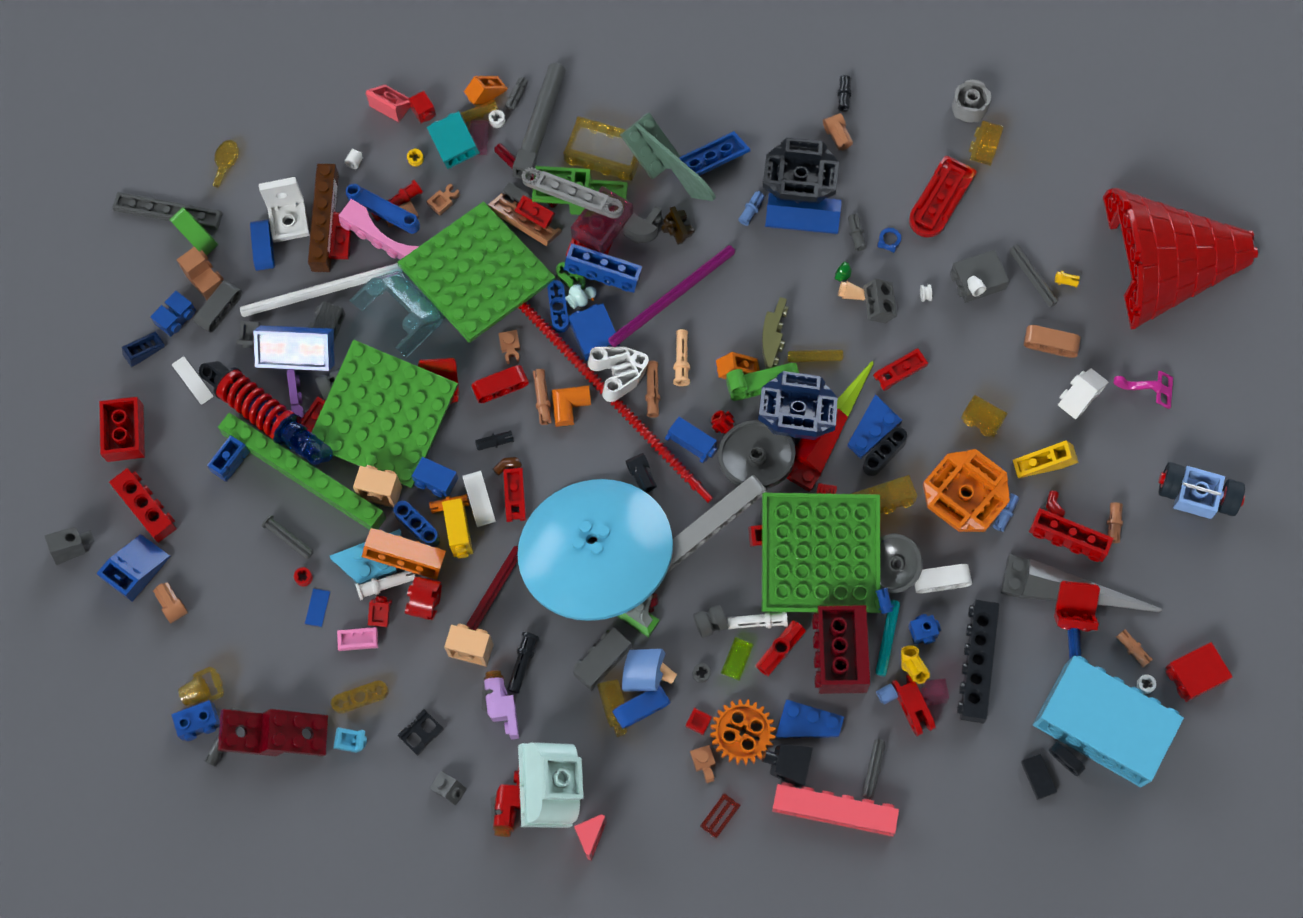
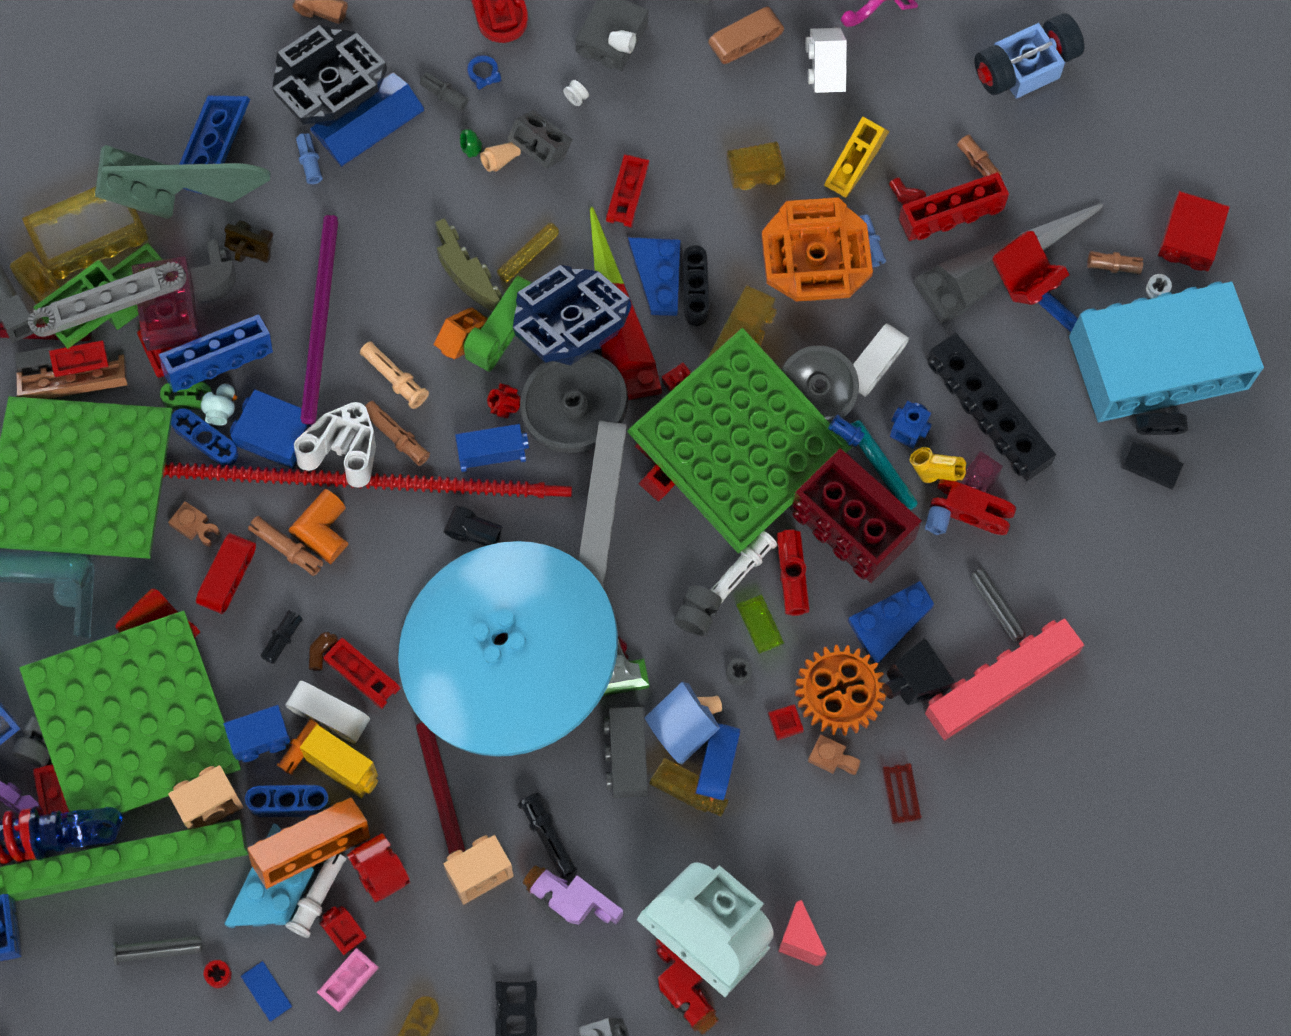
camera: 50 degrees left, 0 degrees up
(554, 151) = (33, 277): none -> clear yellow brick

